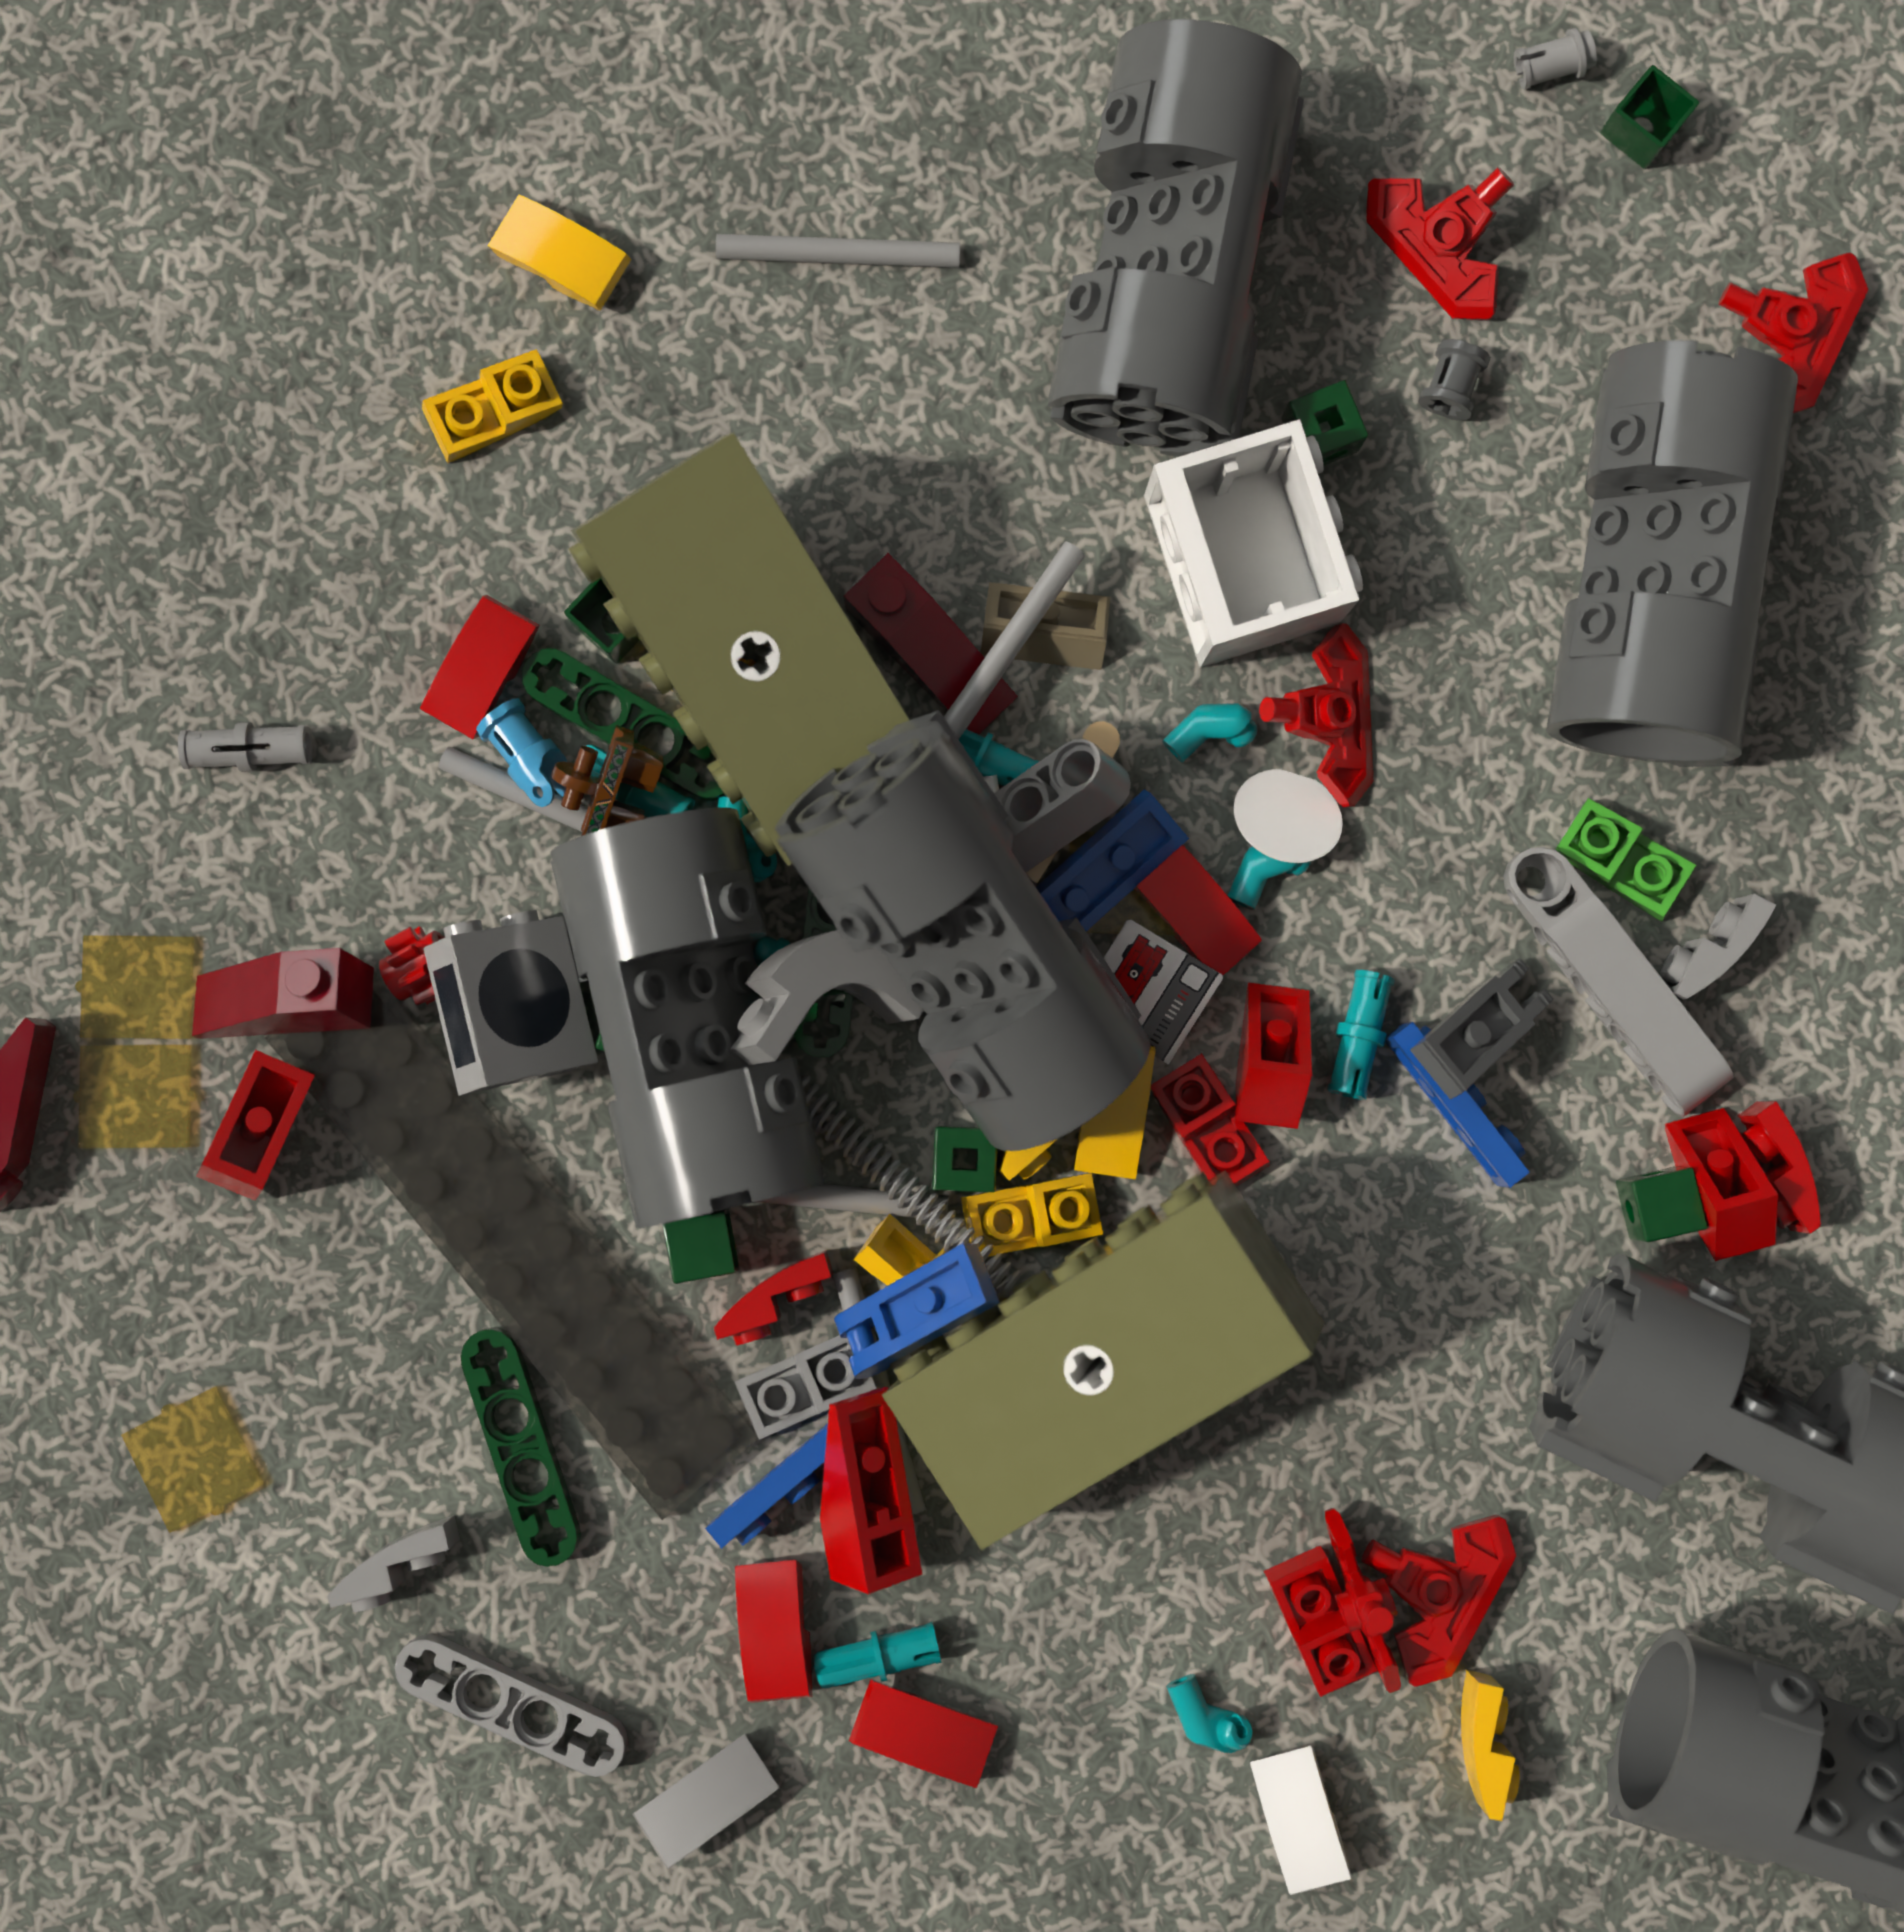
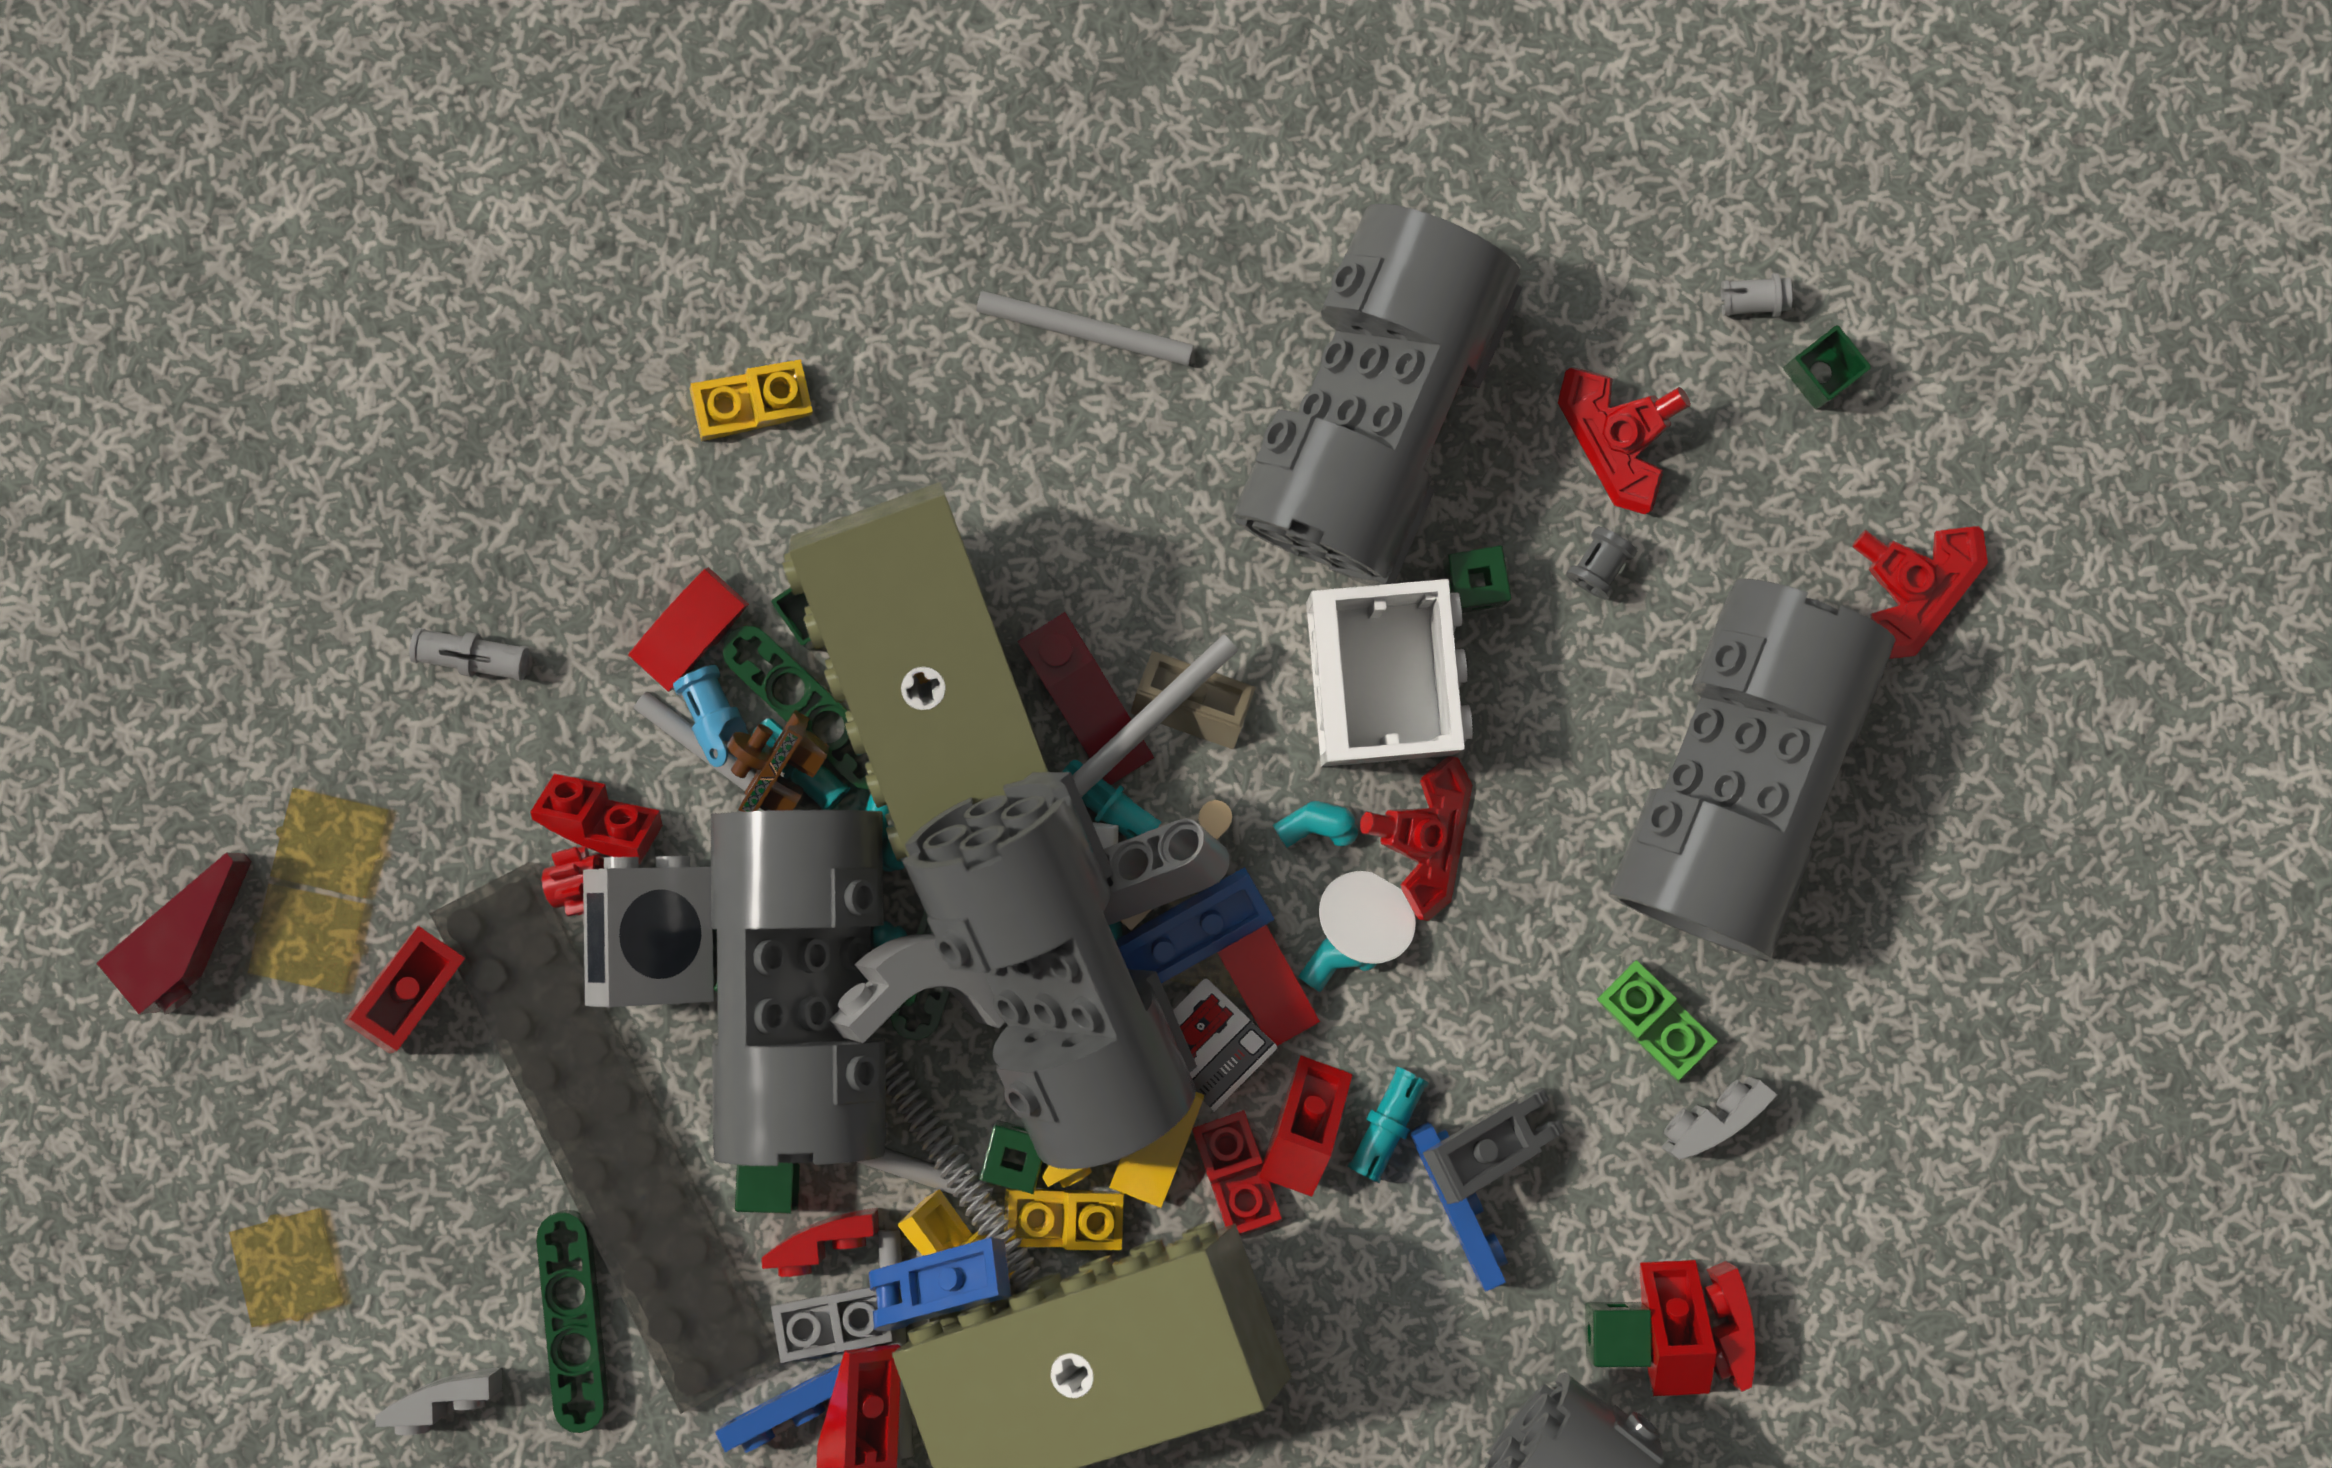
camera: 20 degrees right, 0 degrees up
(285, 995) = (454, 883): dark red slope -> none
(412, 894) = (586, 816): none -> red slope
(560, 252) = (840, 278): yellow slope -> none
(1619, 981) = (1625, 1129): light grey piece -> none

